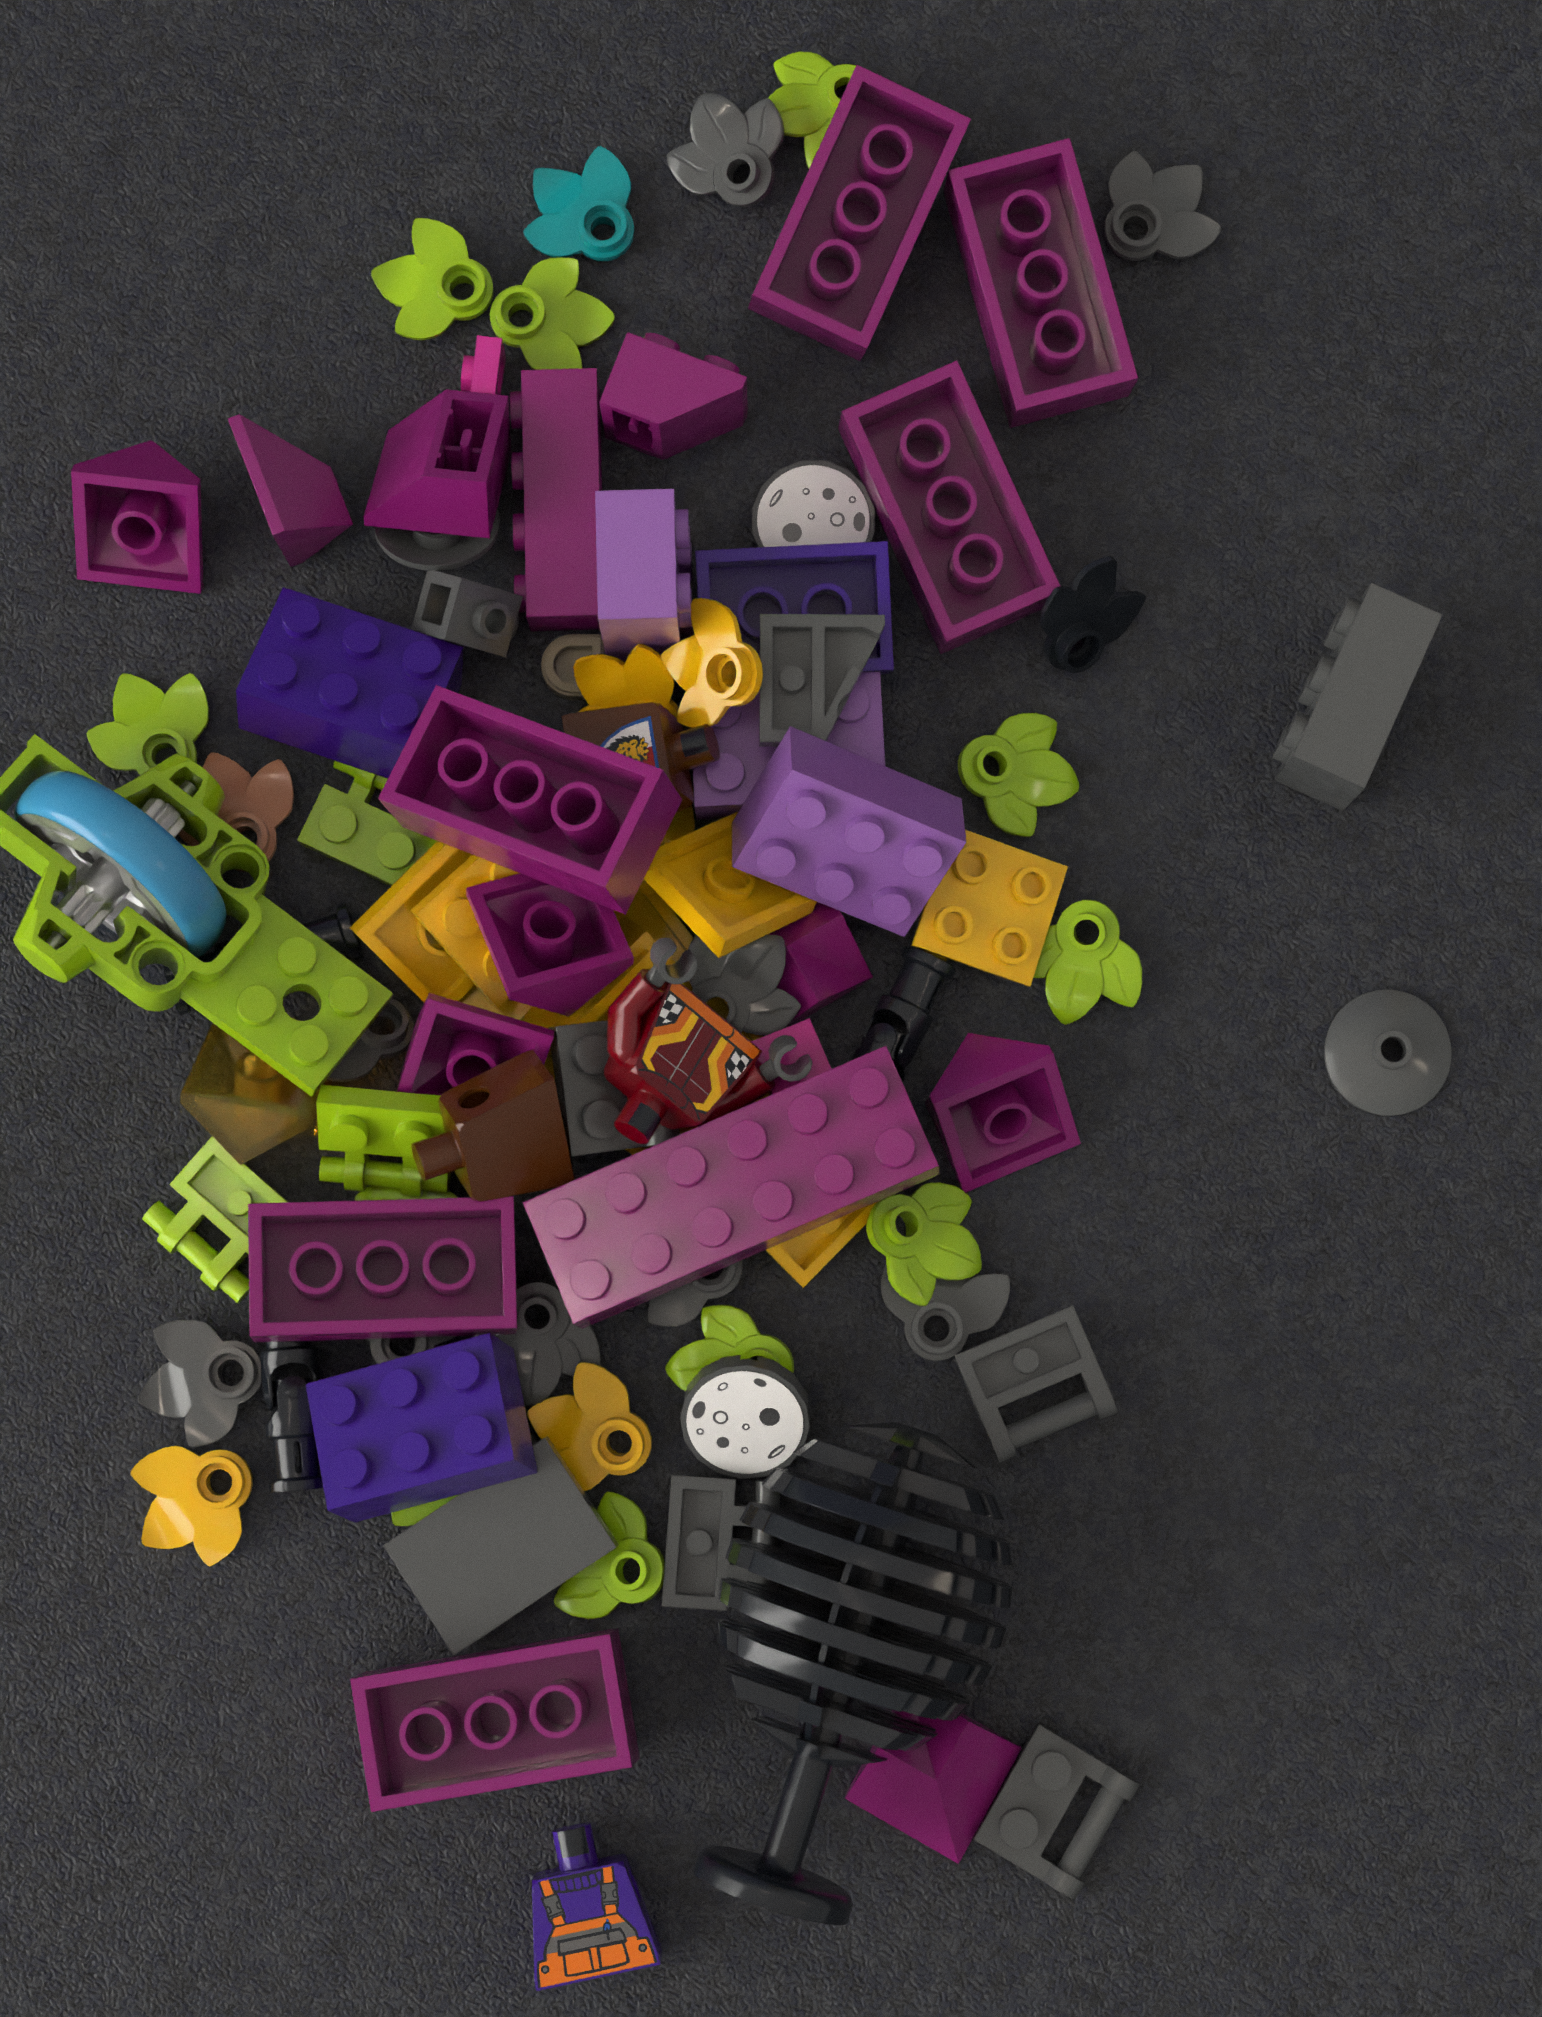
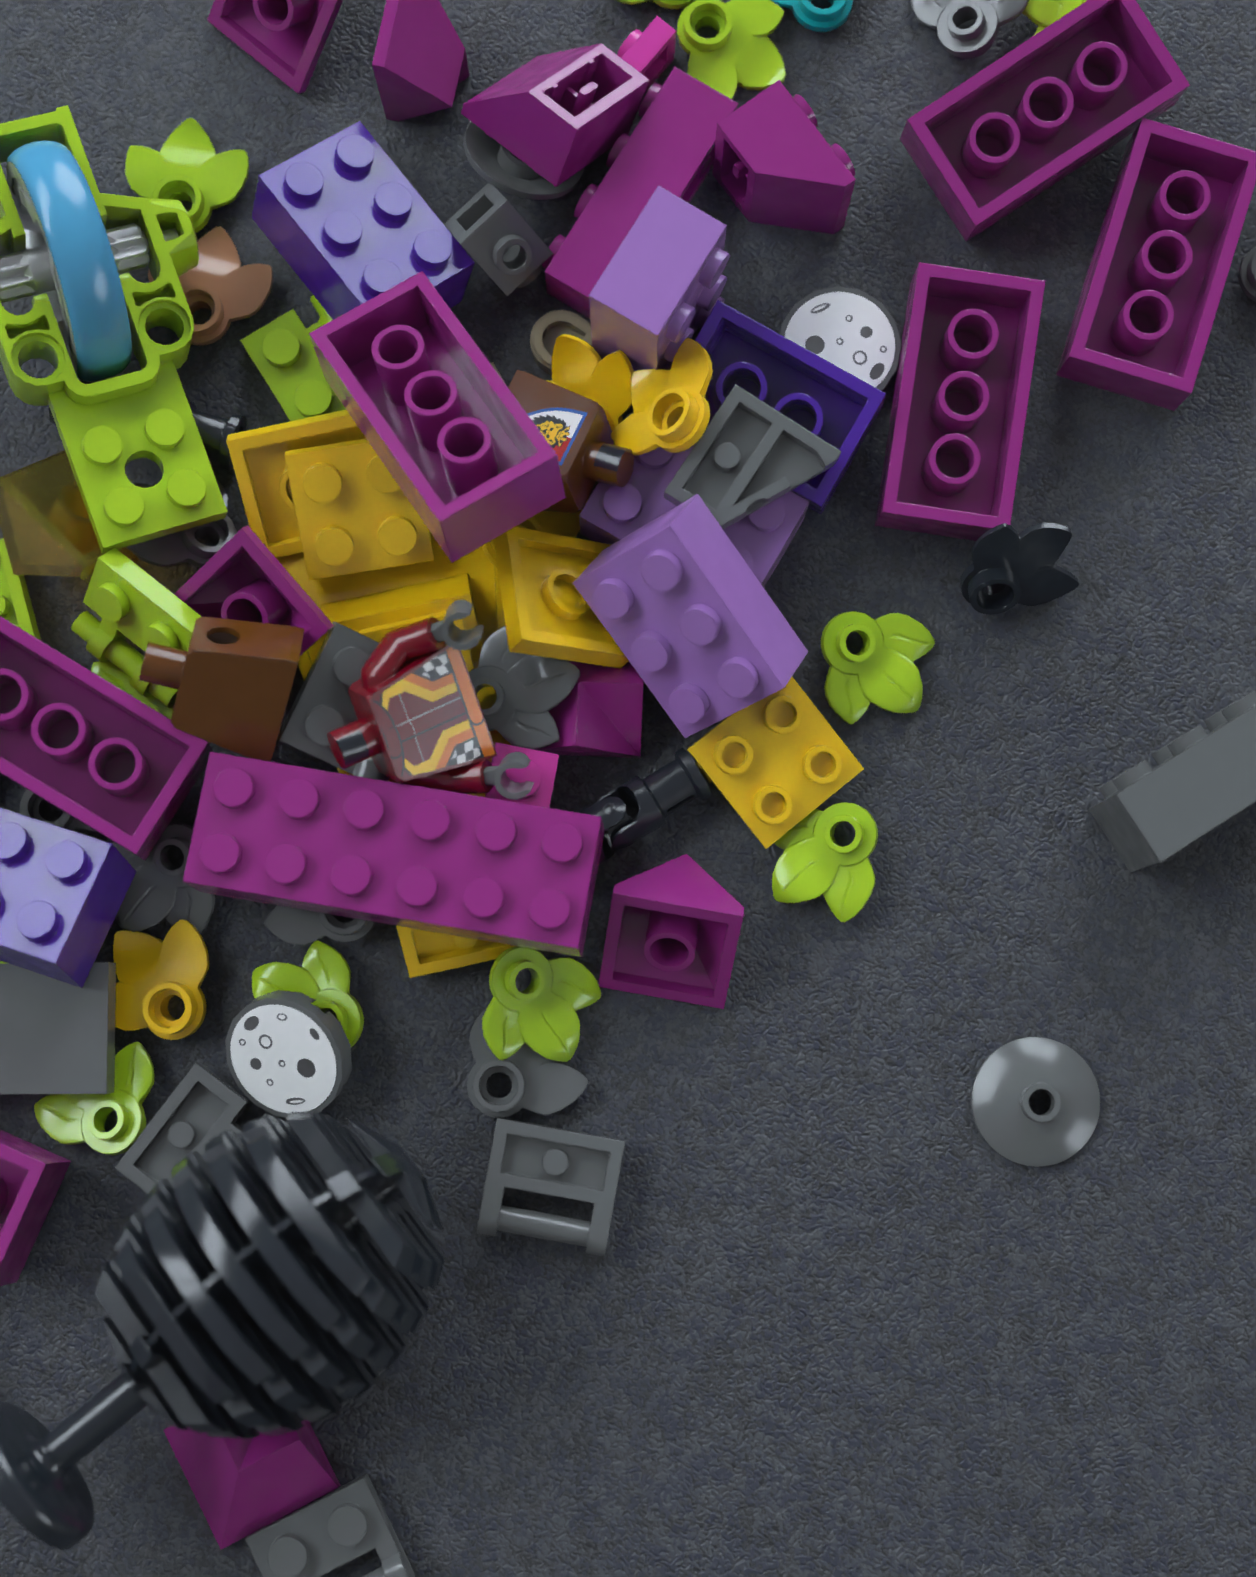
camera: 35 degrees right, 0 degrees up
(548, 942) = (375, 548): magenta slope -> none

